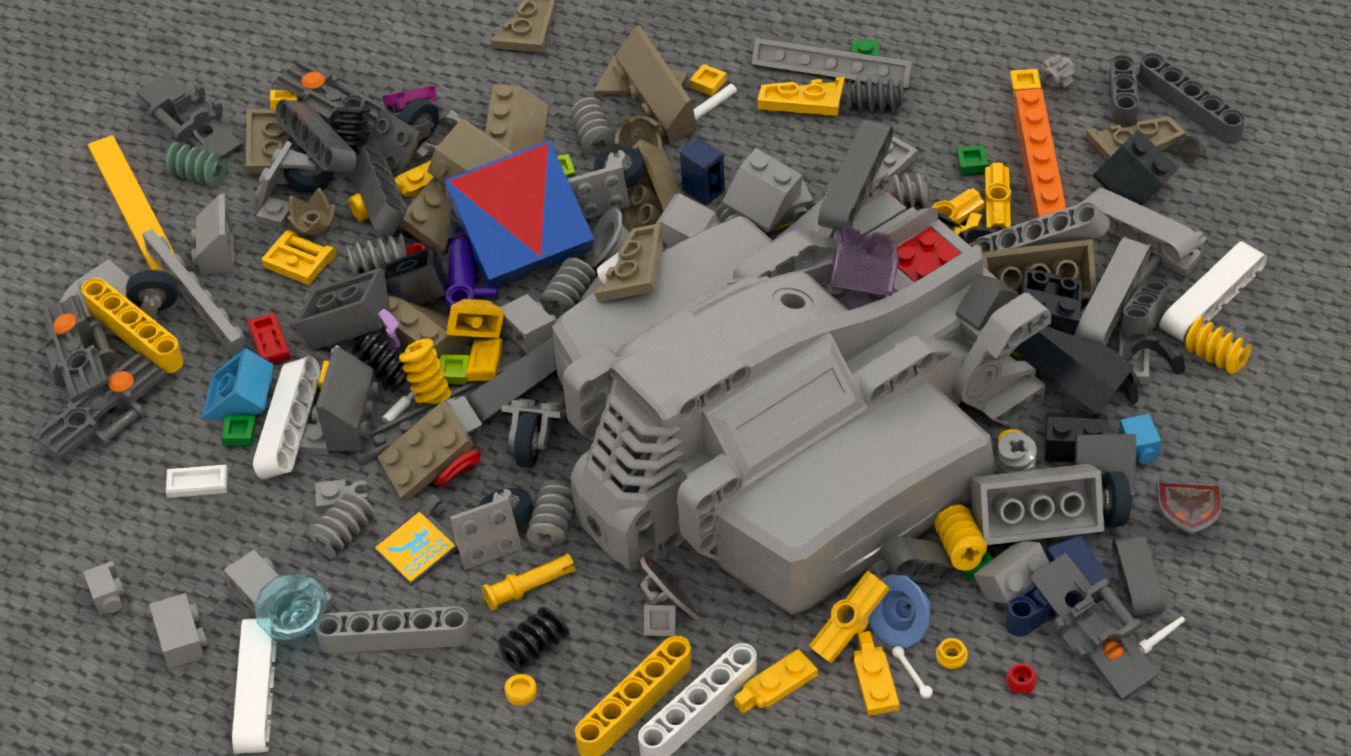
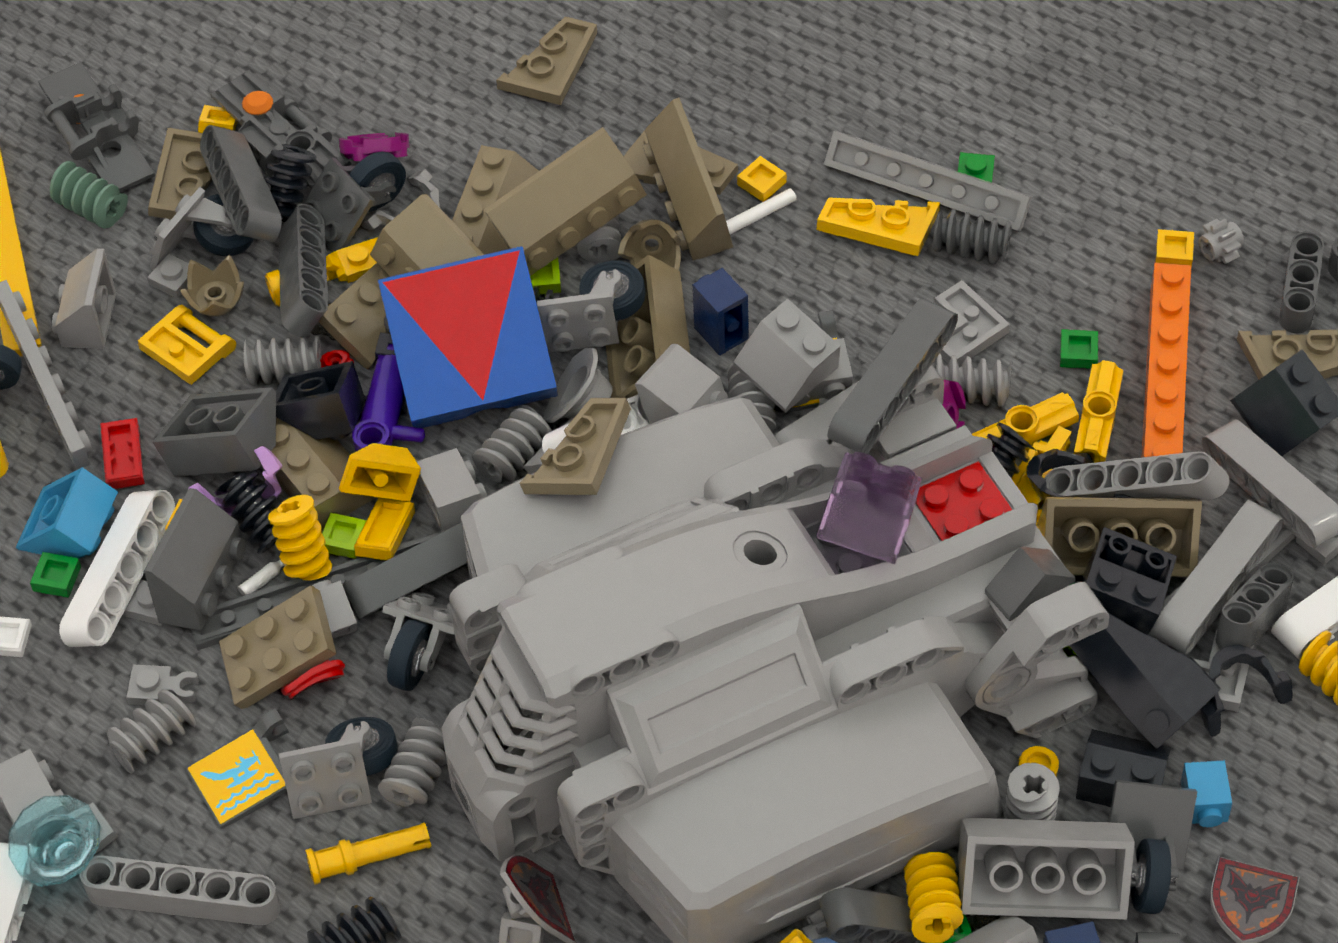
camera: 10 degrees right, 5 degrees up
(571, 106) = (566, 200): none -> dark tan slope

